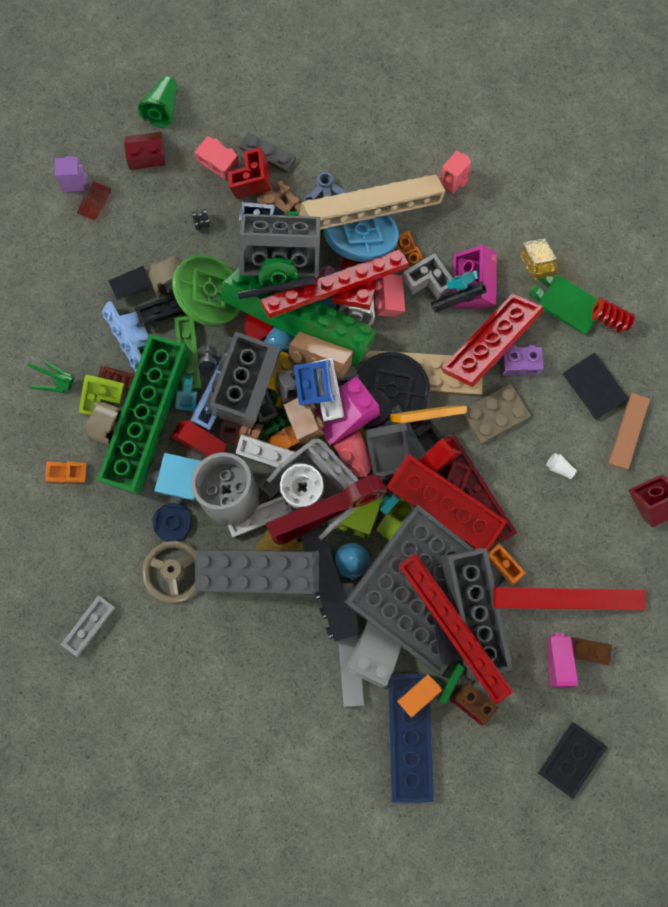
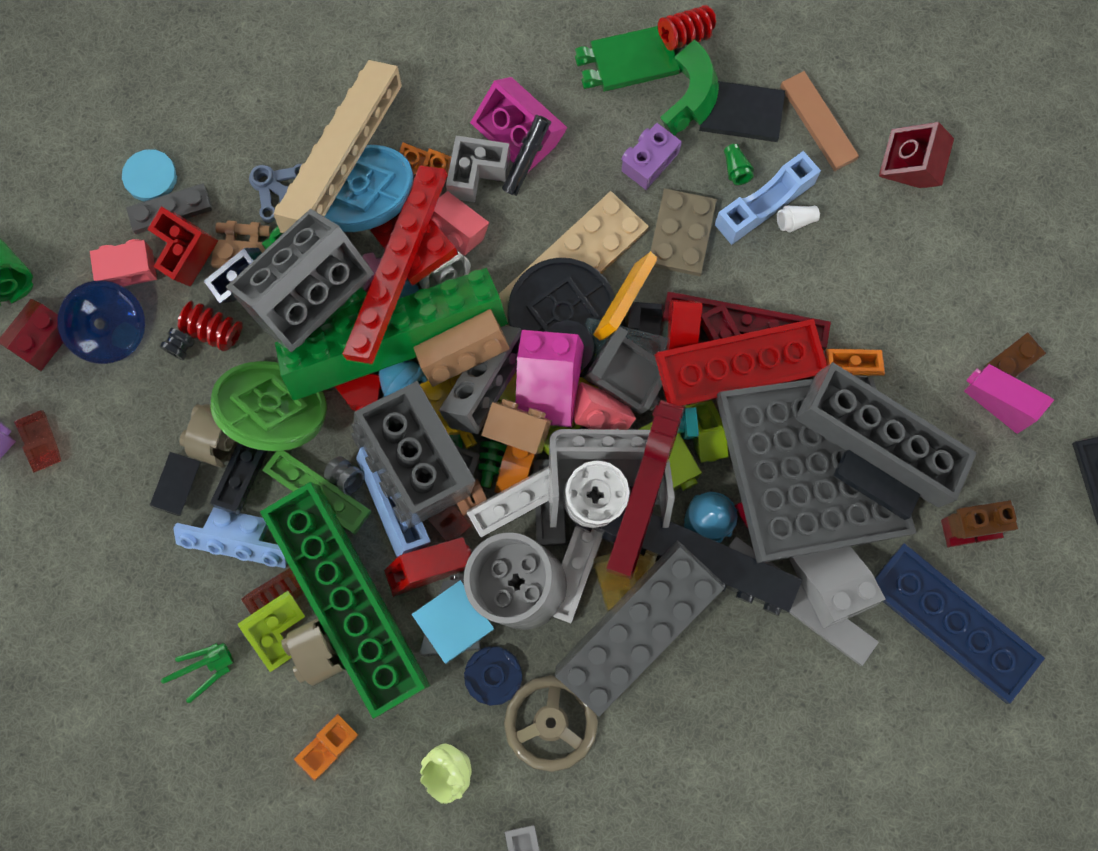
camera: 45 degrees left, 0 degrees up
(102, 540) = (446, 773): none -> yellowish green hair
(186, 397) = (366, 535): teal plate -> none
(192, 174) = (115, 307): none -> clear blue dish
(222, 226) = (209, 328): none -> red piece
(275, 127) = (149, 175): none -> medium azure tile
(277, 266) = (321, 304): green plate -> none
(277, 287) = (344, 325): black bar -> none
(308, 384) = (486, 386): blue plate -> none
(331, 409) = (511, 372): white tile -> none
(419, 695) = (922, 573): orange slope -> none
(451, 683) = (933, 530): green tile -> none
(455, 172) = (386, 37): coral brick -> none
(456, 629) = (889, 470): red tile -> none
(462, 281) = (516, 134): teal plate -> none
(492, 340) = (604, 163): red plate -> none
(539, 258) = (559, 41): clear yellow brick -> none
(560, 410) = (738, 166): none -> green cone
(568, 598) = (948, 331): red tile -> none
(574, 444) = (749, 212): none -> light blue arch
(583, 354) = (701, 93): none -> green arch

